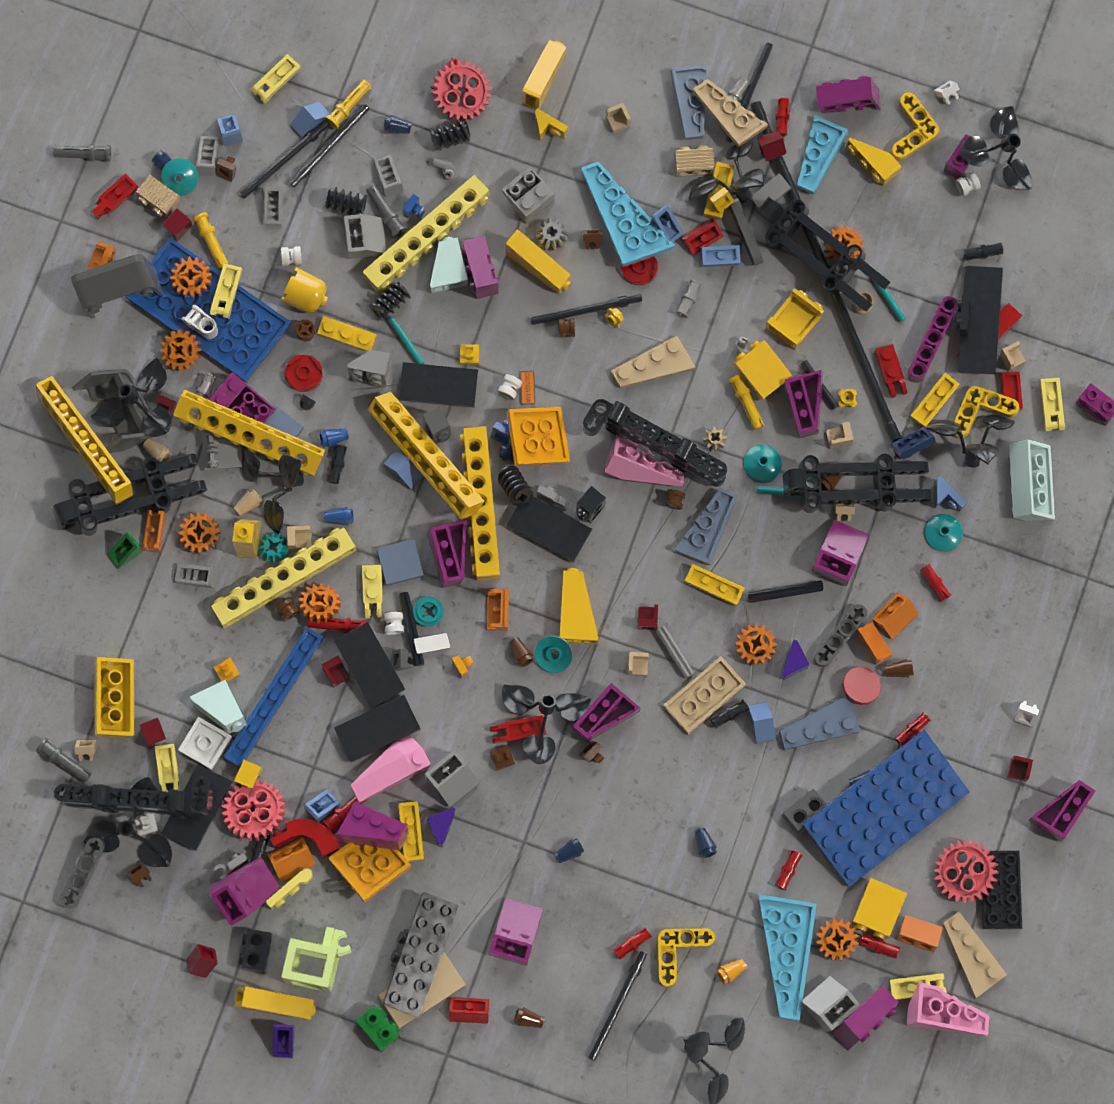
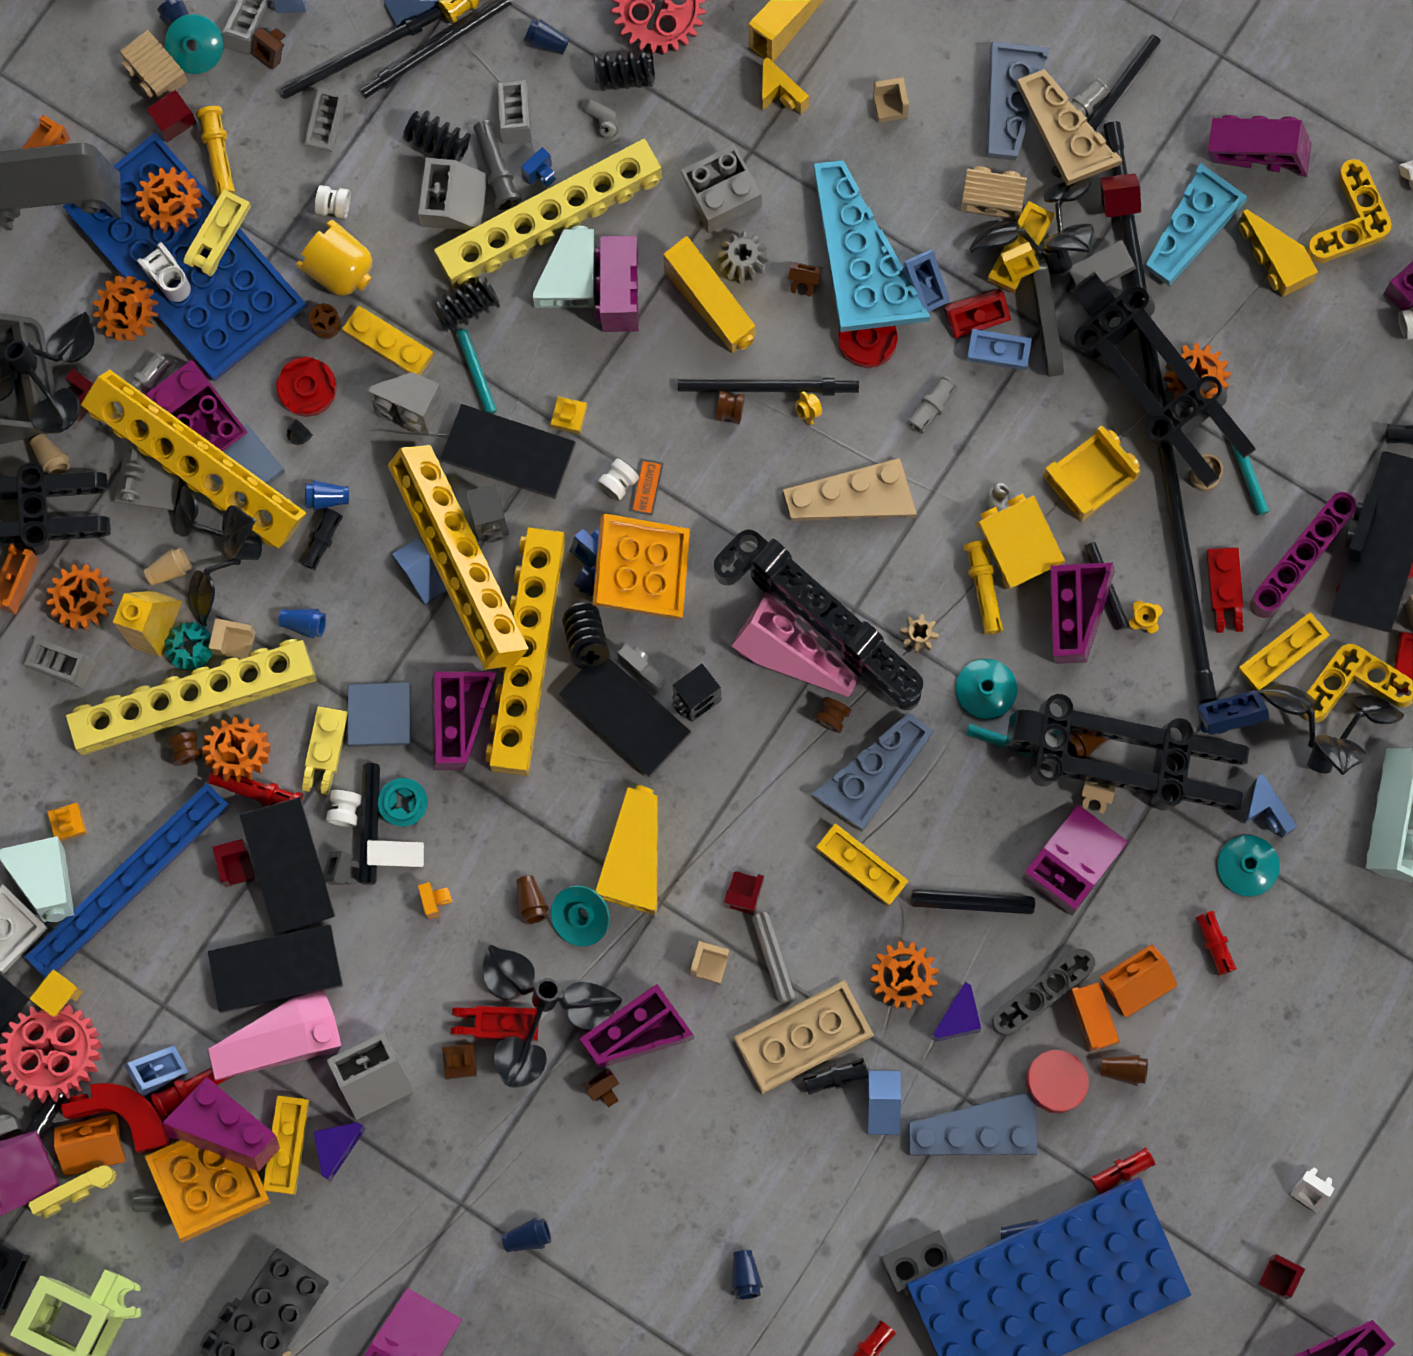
camera: 20 degrees right, 0 degrees up
(115, 196) = (88, 52): red hinge -> none
(497, 609) = (512, 825): orange hinge -> none
(782, 116) = (1149, 153): red pin -> none
(840, 436) = (1118, 674): tan panel -> none

